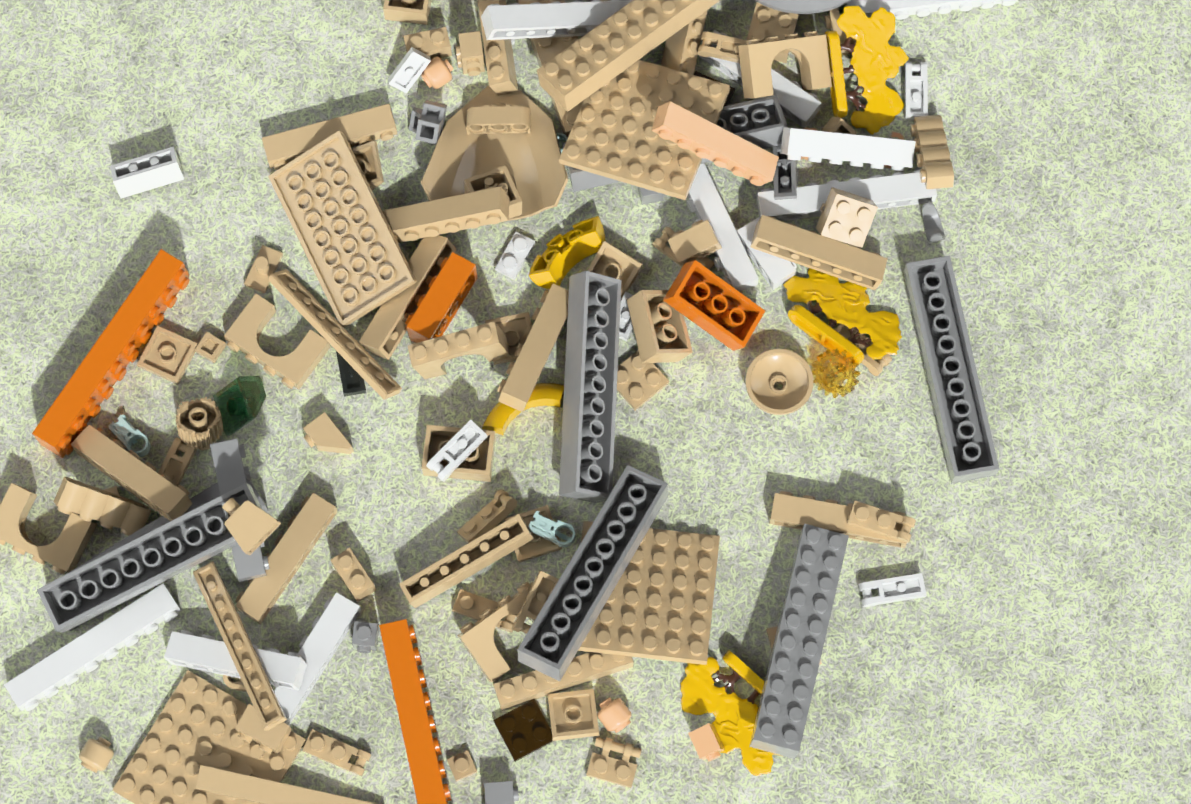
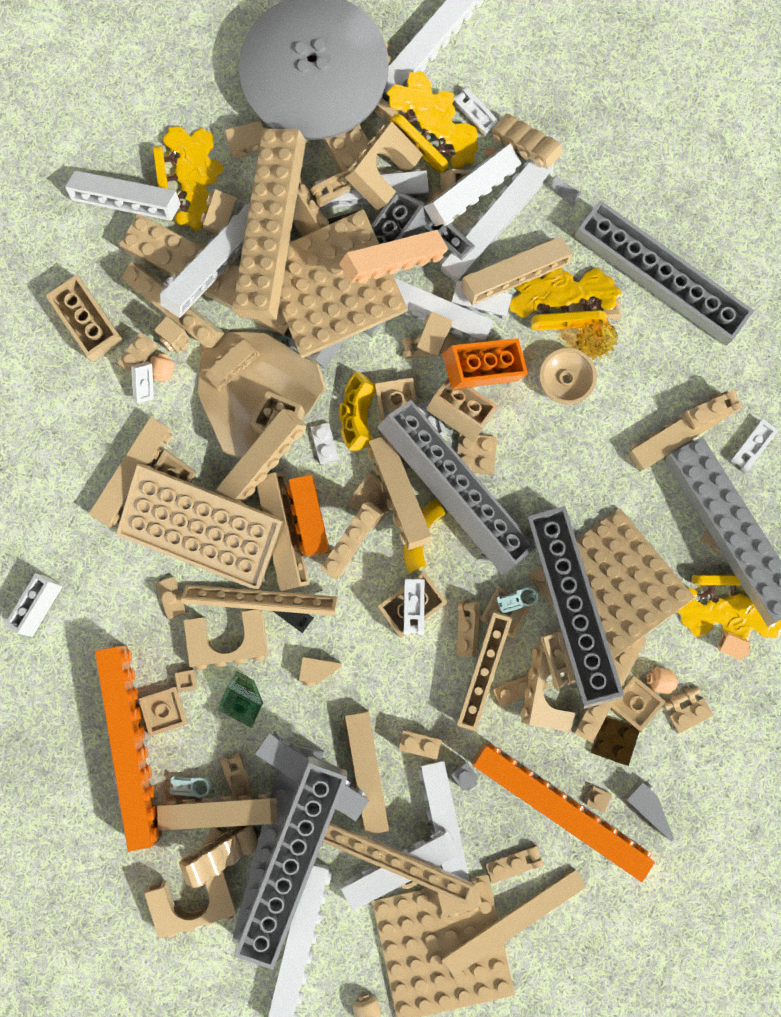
camera: 45 degrees left, 10 degrees up
(199, 423) = (238, 740): tan brick -> none
(249, 524) = (338, 789): tan torso -> none
(428, 122) = (187, 405): light grey brick -> none
(846, 217) = (513, 232): brick -> none

